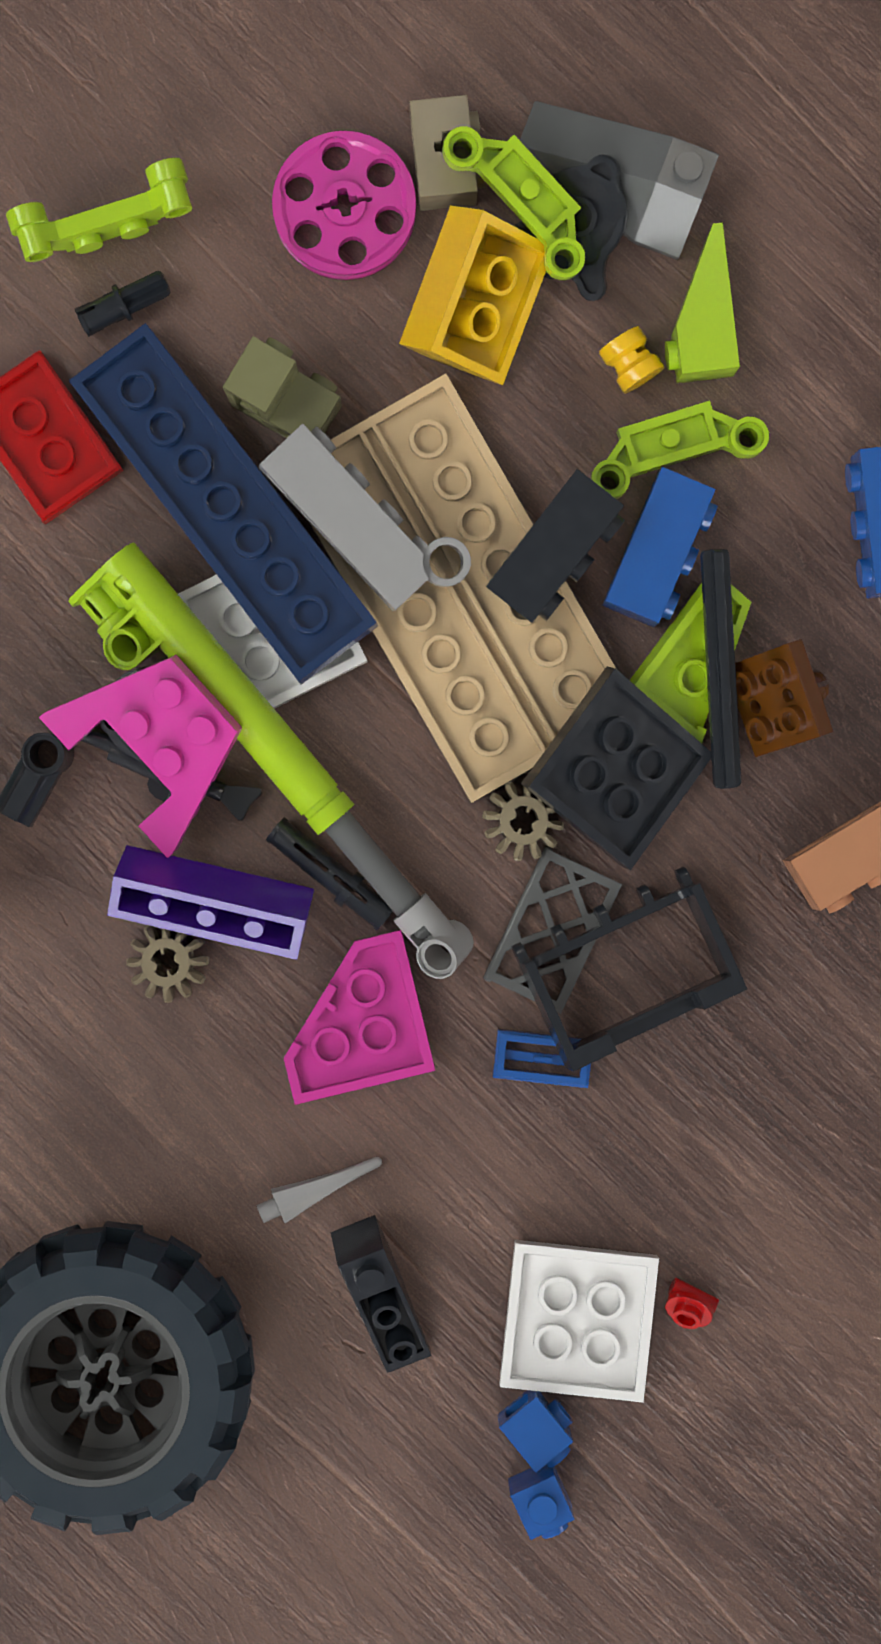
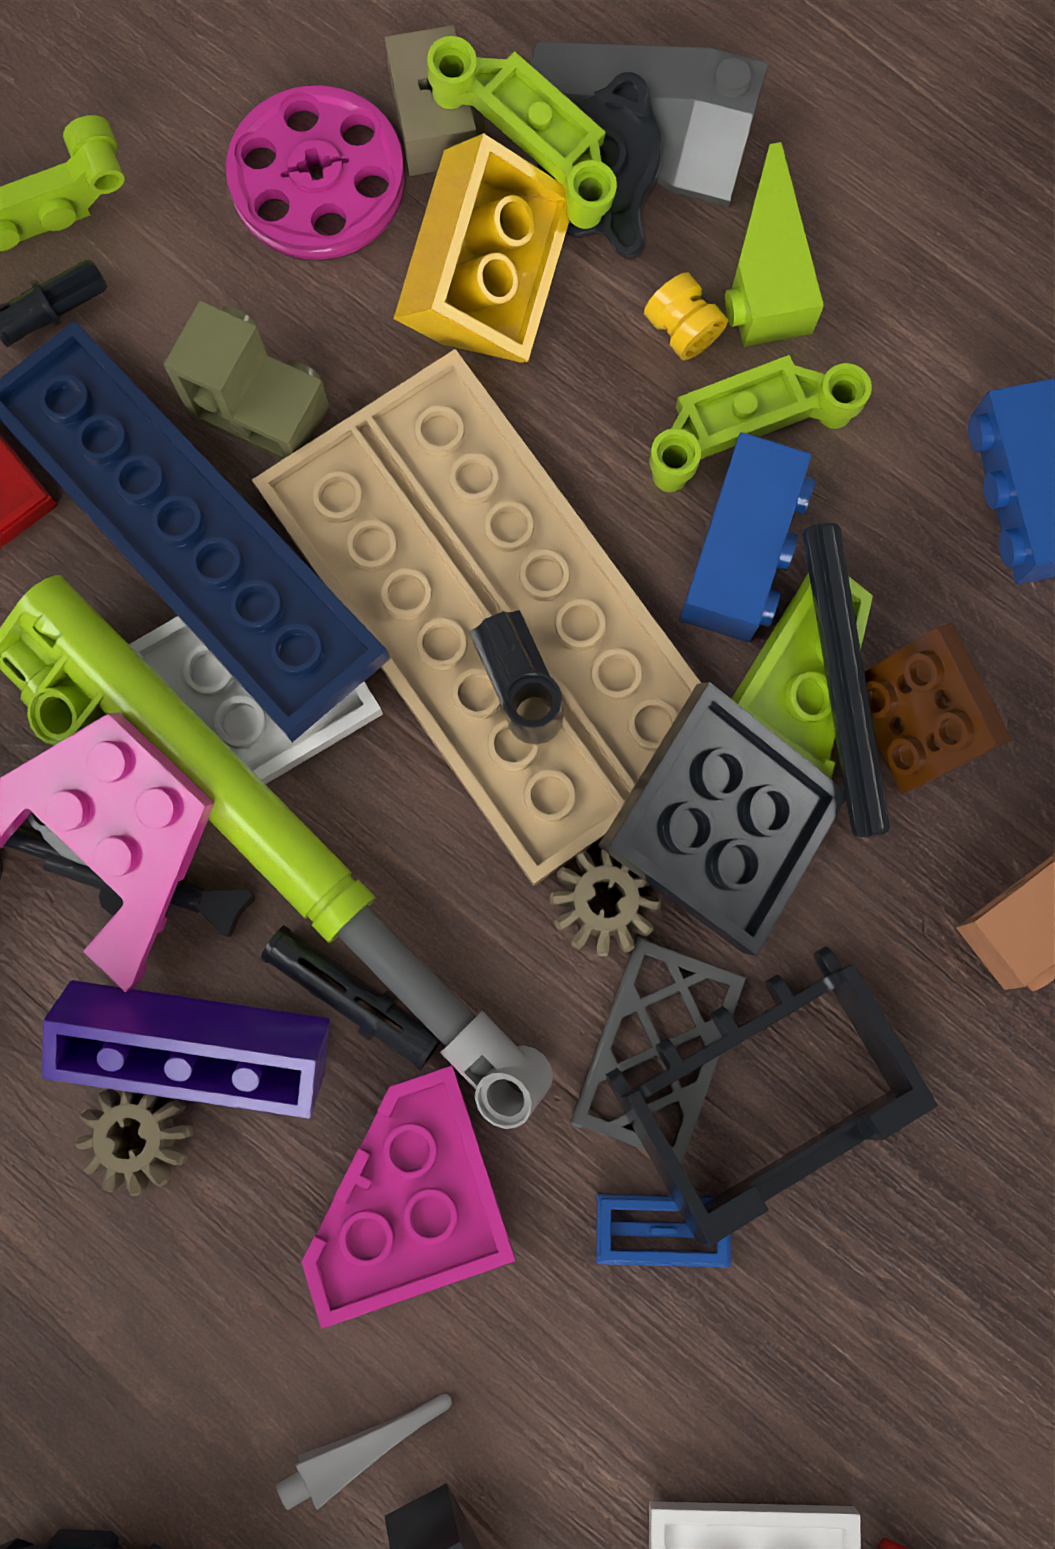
camera: 10 degrees left, 10 degrees down
(352, 521) = (349, 527): light grey hinge -> none
(472, 644) = (518, 674): none -> black piece
(557, 547) = (616, 536): black brick -> none

